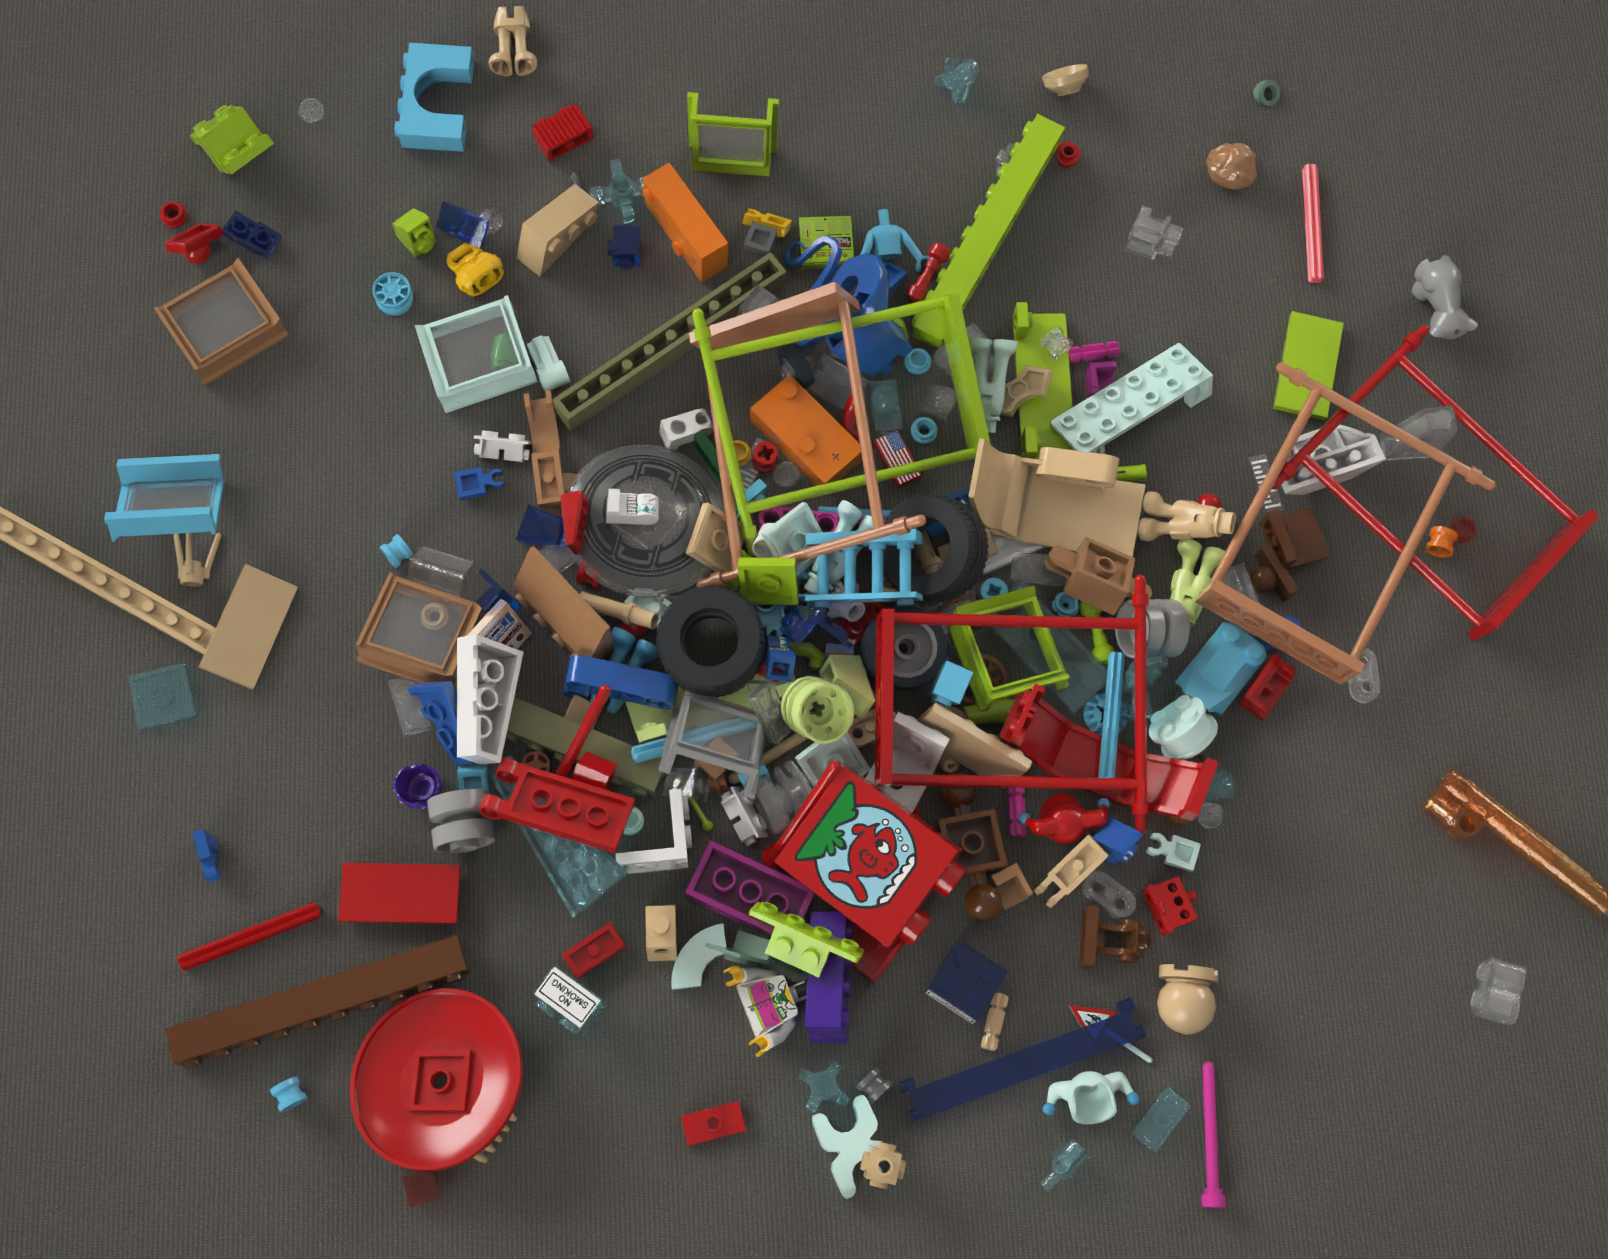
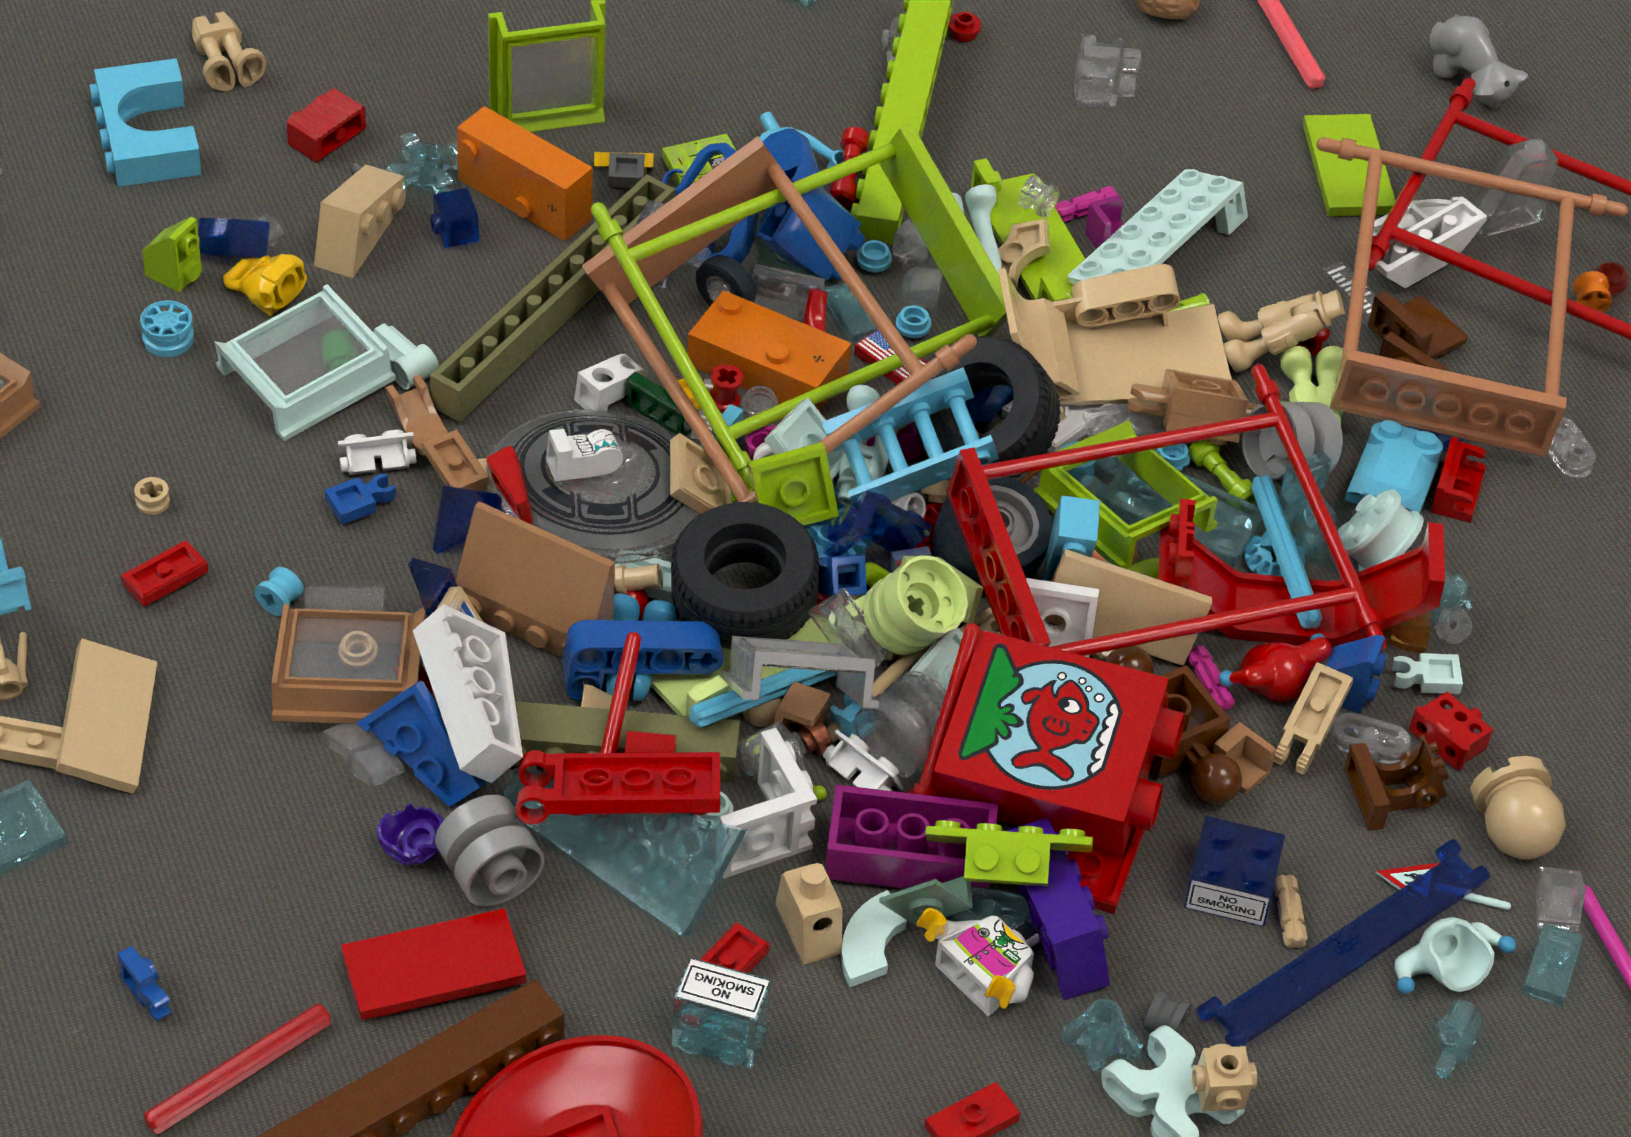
camera: 15 degrees left, 25 degrees down
(325, 512) = (164, 573): none -> red plate
(332, 433) = (154, 486): none -> tan bush
(1186, 1071) = (1559, 898): none -> clear brick

